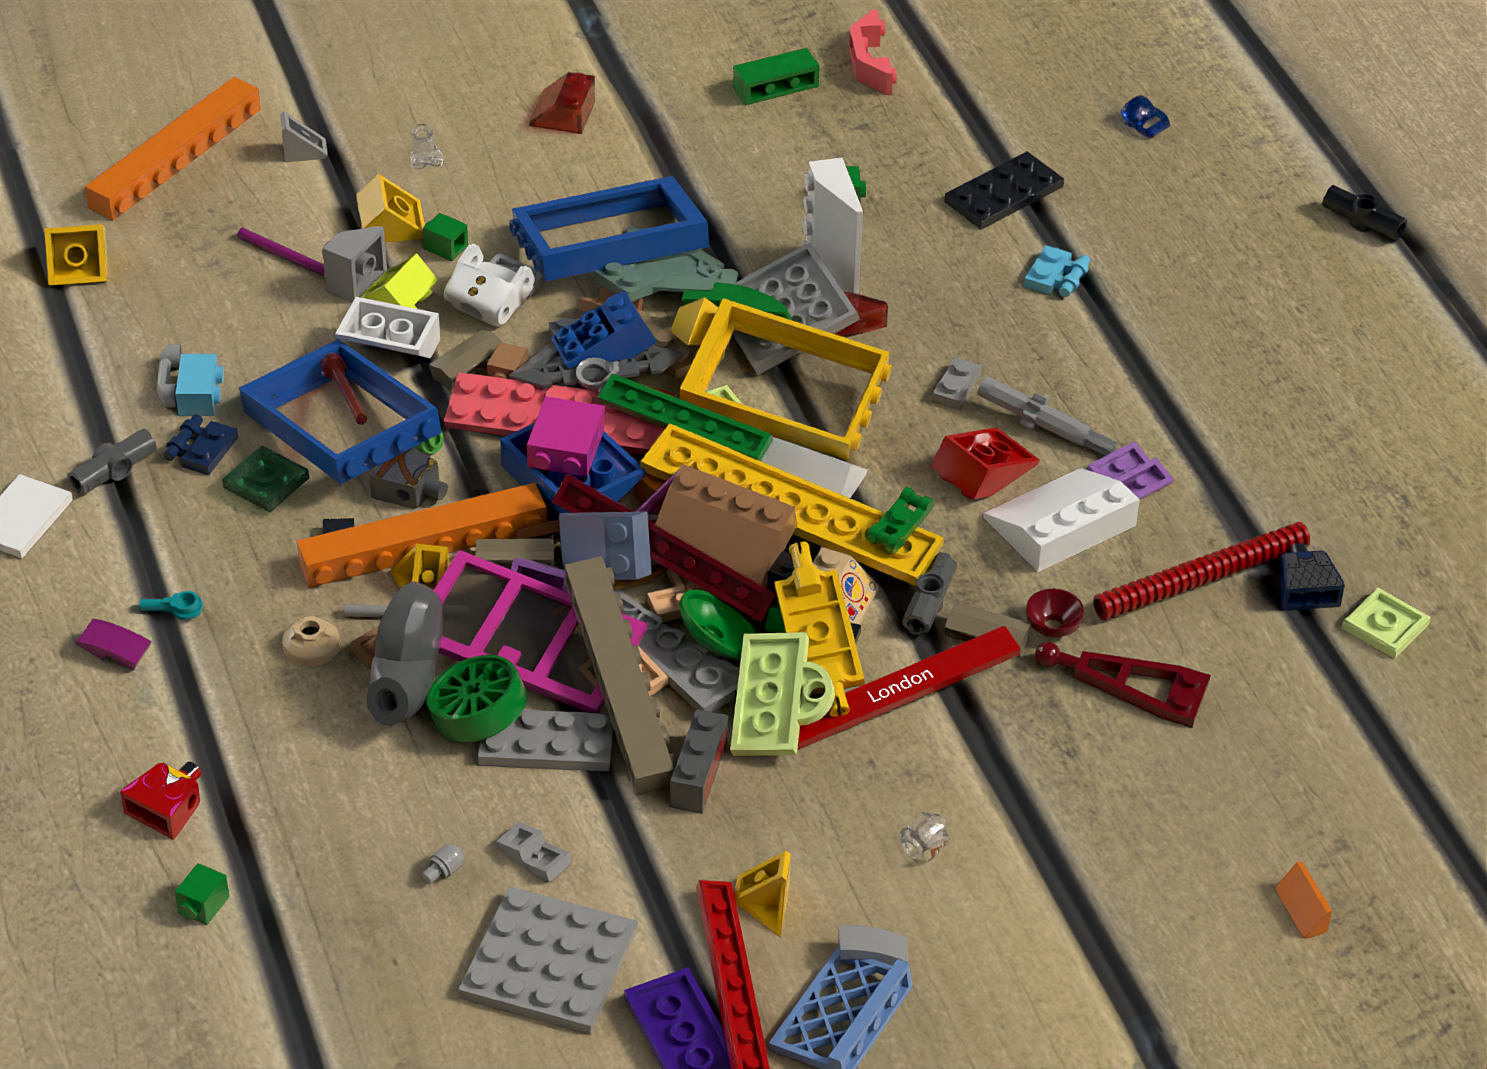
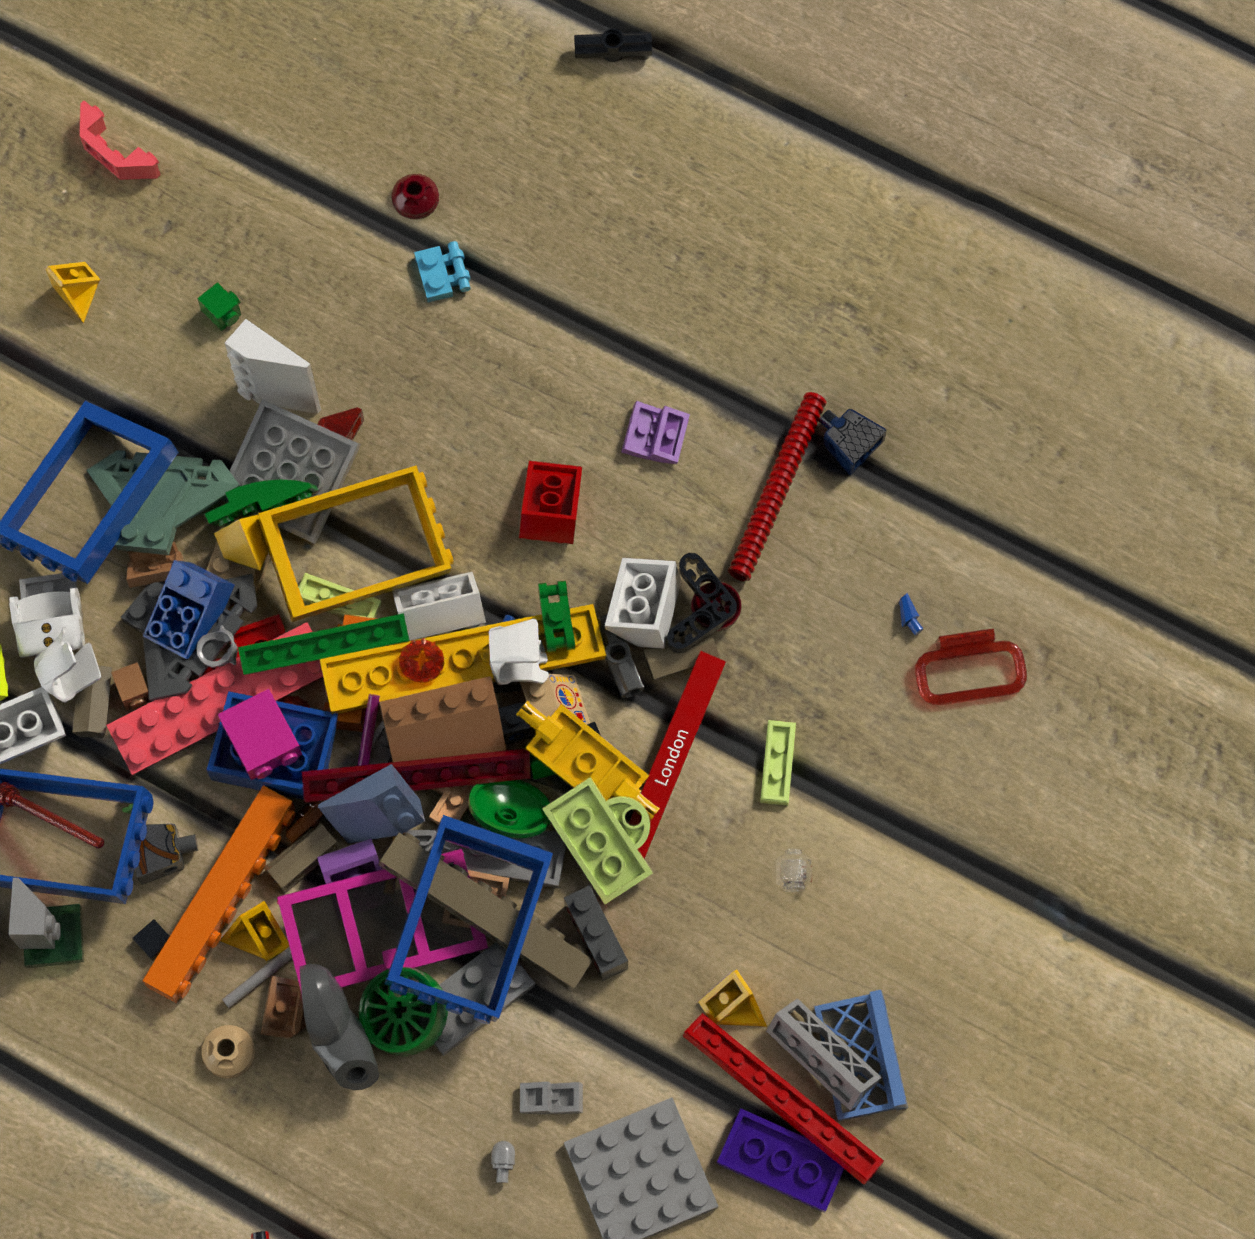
camera: 40 degrees left, 25 degrees up
(112, 640) = (92, 1175): magenta slope -> none
(184, 605) = (109, 1098): teal plate -> none
(255, 439) = (30, 920): none -> light grey slope
(451, 303) = (63, 672): none -> white piece
(662, 604) = (494, 846): none -> blue window
(747, 113) = (75, 285): none -> yellow slope
(759, 483) = (430, 669): none -> clear red gear
(776, 76) = (61, 226): green brick -> none
(797, 975) = (818, 1055): none -> light grey fence
(824, 519) = (517, 653): none -> white piece
(871, 943) = (836, 988): light grey slope -> none
(957, 383) = (464, 438): light grey plate -> none
(992, 565) = (644, 601): none -> white slope
(995, 759) = (778, 762): none -> yellowish green tile
(1004, 190) = (333, 215): black plate -> none
(1036, 412) = (548, 427): light grey piece -> none
(1043, 605) = (709, 610): none -> black beam
(1065, 517) = (642, 506): white slope -> none
(1086, 220) = (418, 205): none -> dark red piece
(1141, 110) = (368, 59): clear blue piece -> none
(1183, 700) = (851, 603): dark red plate -> none
(1232, 735) = (909, 615): none -> blue bar
(1263, 782) = (968, 645): none -> clear red bar
(1304, 901) = (1065, 722): orange slope -> none
(1386, 622) = (926, 433): yellowish green tile -> none

